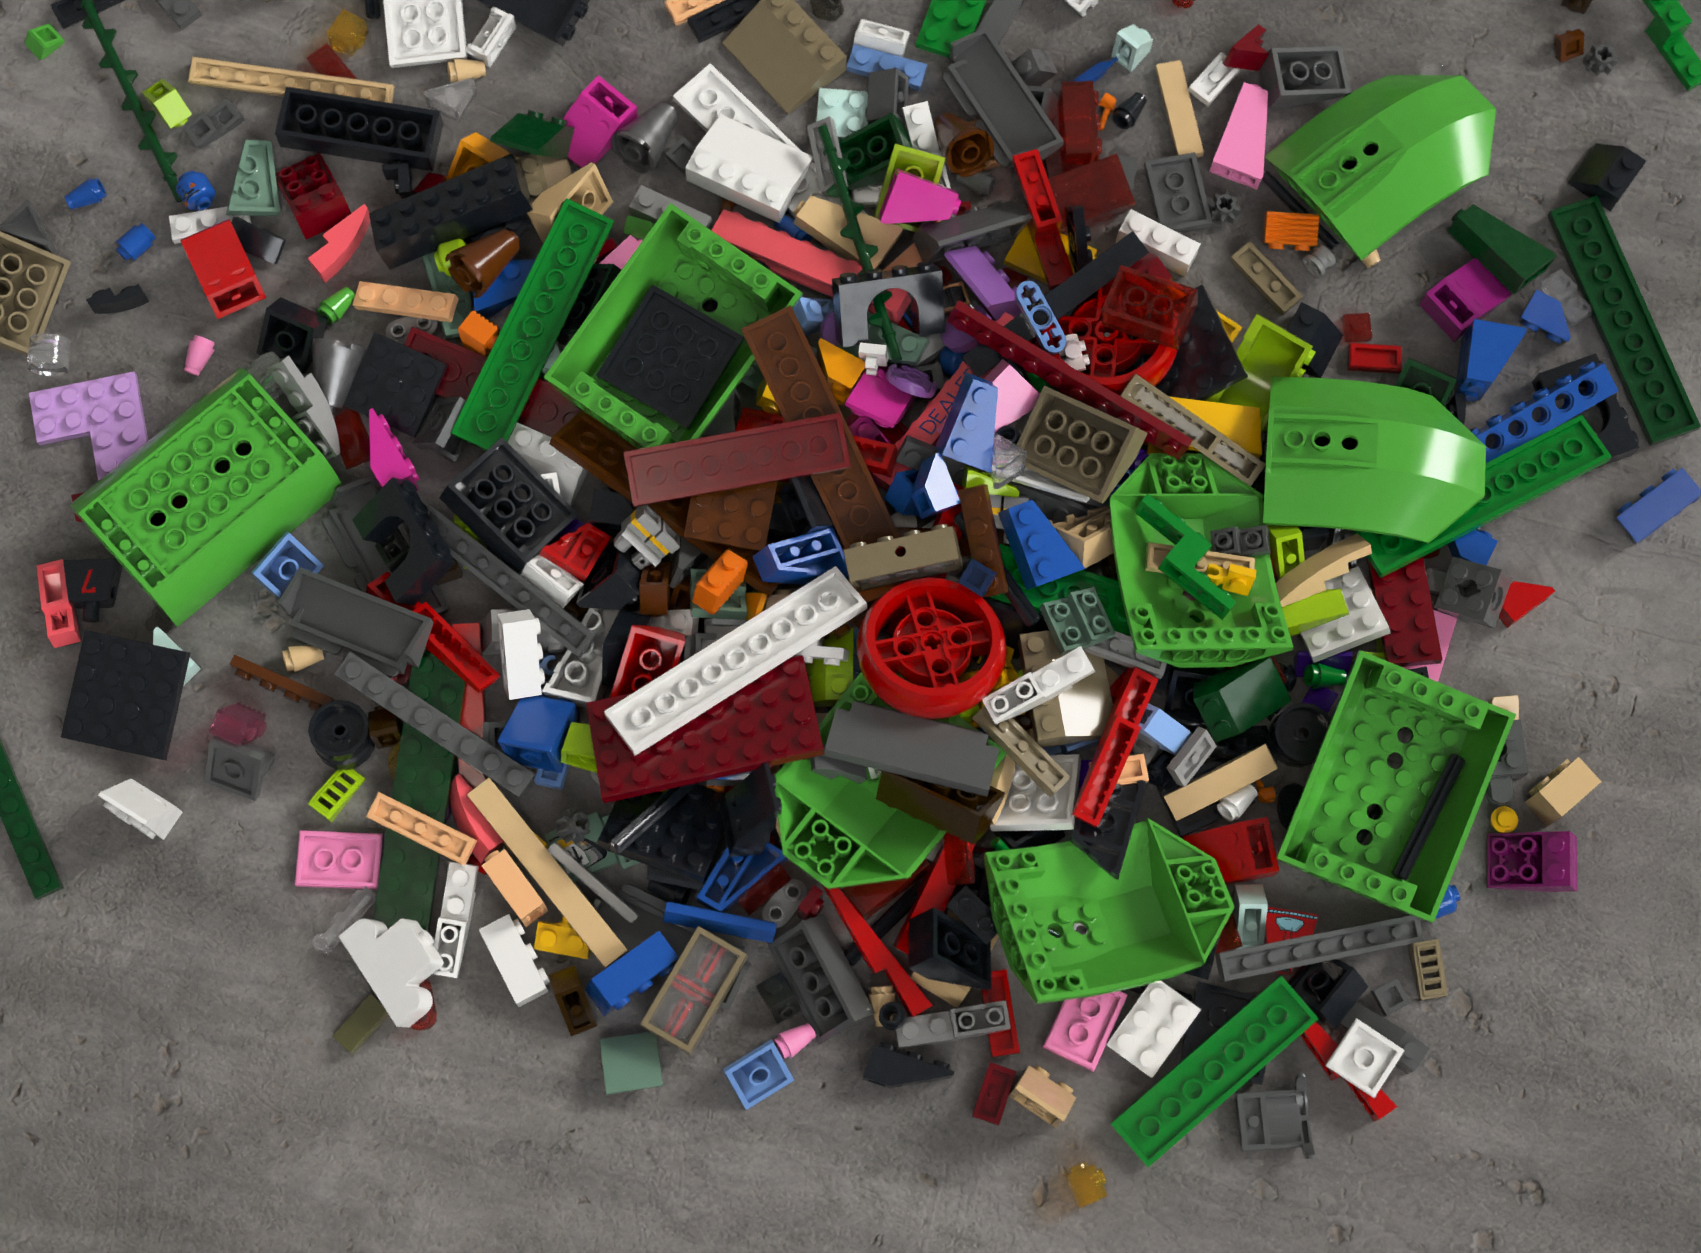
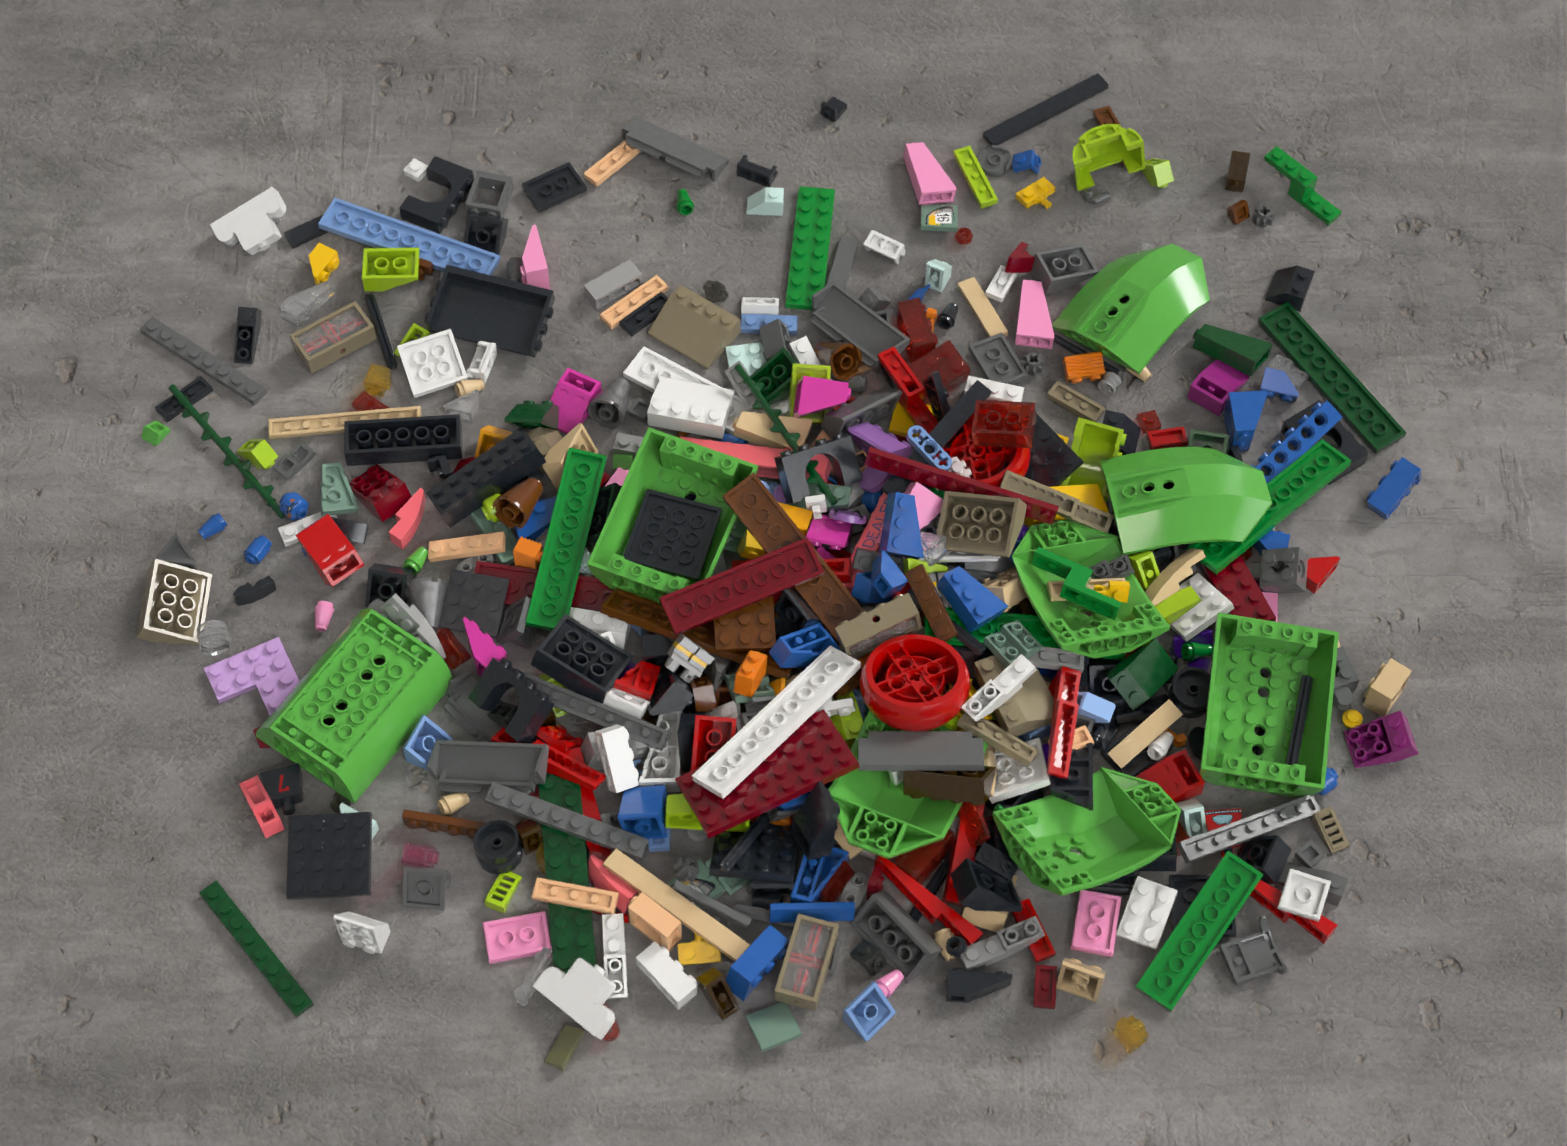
camera: 10 degrees left, 15 degrees down
(455, 596) = (559, 737): none -> red plate
(833, 767) = (867, 778): dark grey slope -> none
(977, 577) = (935, 626): dark blue plate -> none
(1191, 756) = (1119, 720): light grey plate -> none

